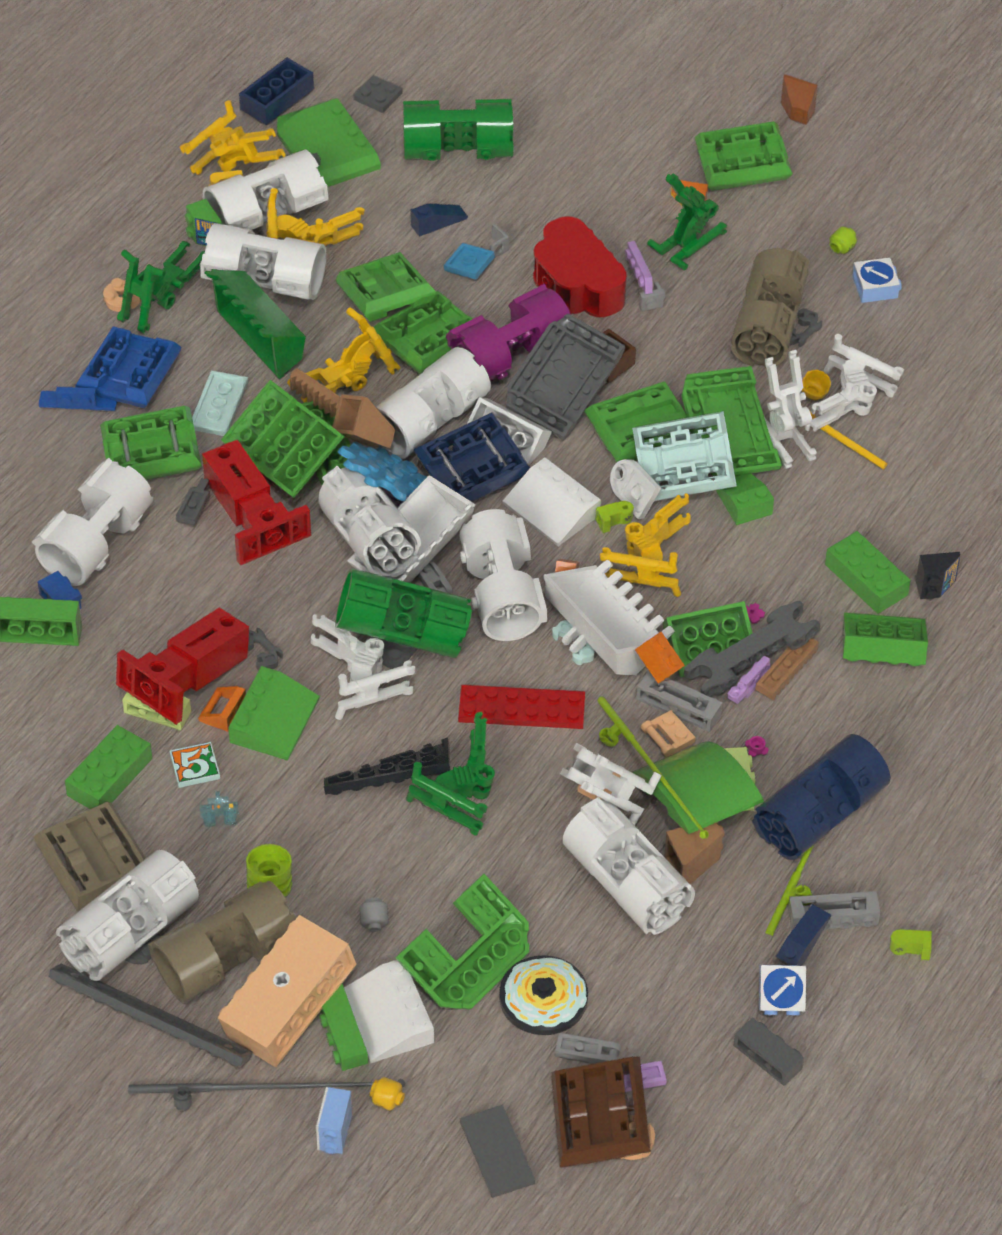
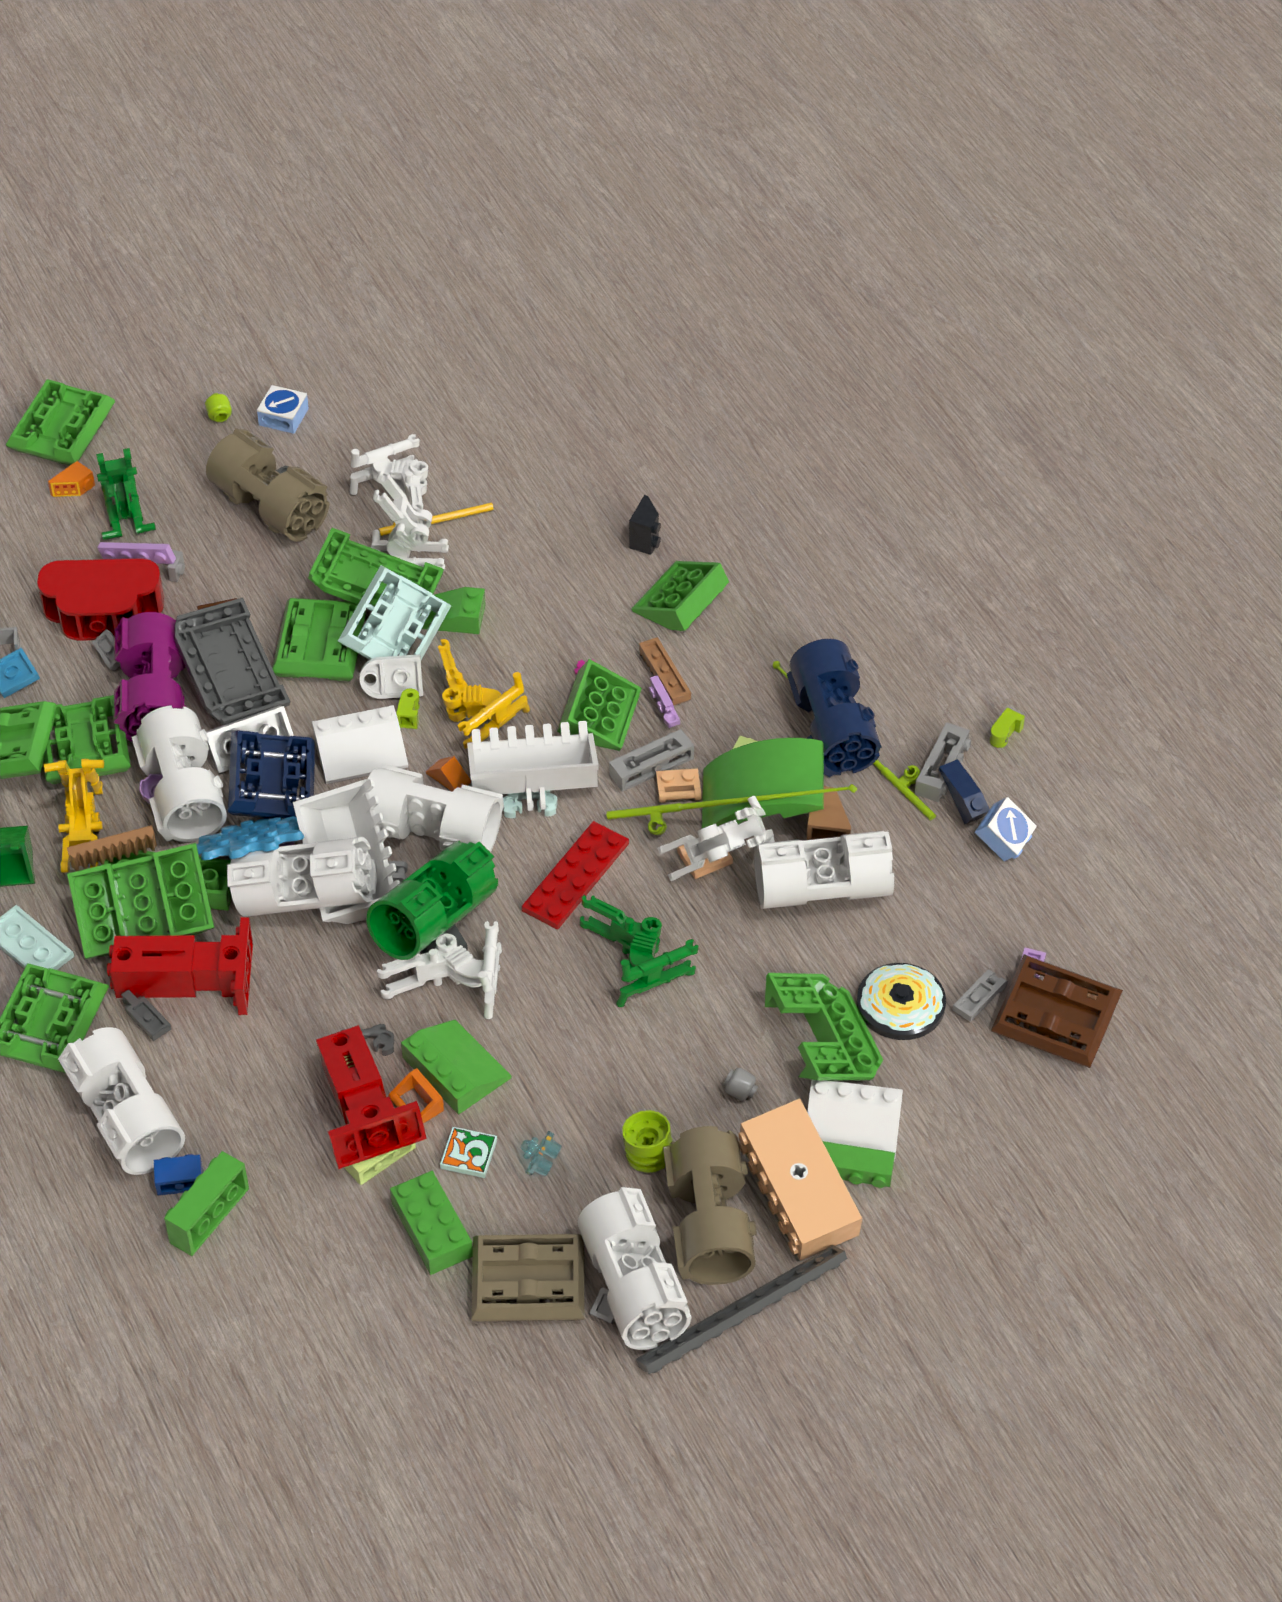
camera: 60 degrees left, 0 degrees up
(183, 1099) = (853, 1320): dark grey piece -> none
(334, 1120) = (955, 1209): light blue piece -> none
(363, 422) = (178, 824): medium nougat slope -> none
(387, 1093) = (942, 1159): yellow head -> none
(392, 769) = (587, 992): black wing -> none
(497, 1151) = (1044, 1107): dark grey tile -> none
(659, 657) = (613, 740): orange slope -> none
(724, 666) = (639, 711): dark grey piece -> none
(754, 742) = (733, 732): dark pink plate -> none
(768, 1051) = (1056, 871): dark grey brick -> none
(798, 98) = (27, 354): dark orange slope -> none
(816, 384) = (367, 506): yellow hair -> none
(867, 572) = (604, 570): bright green brick -> none

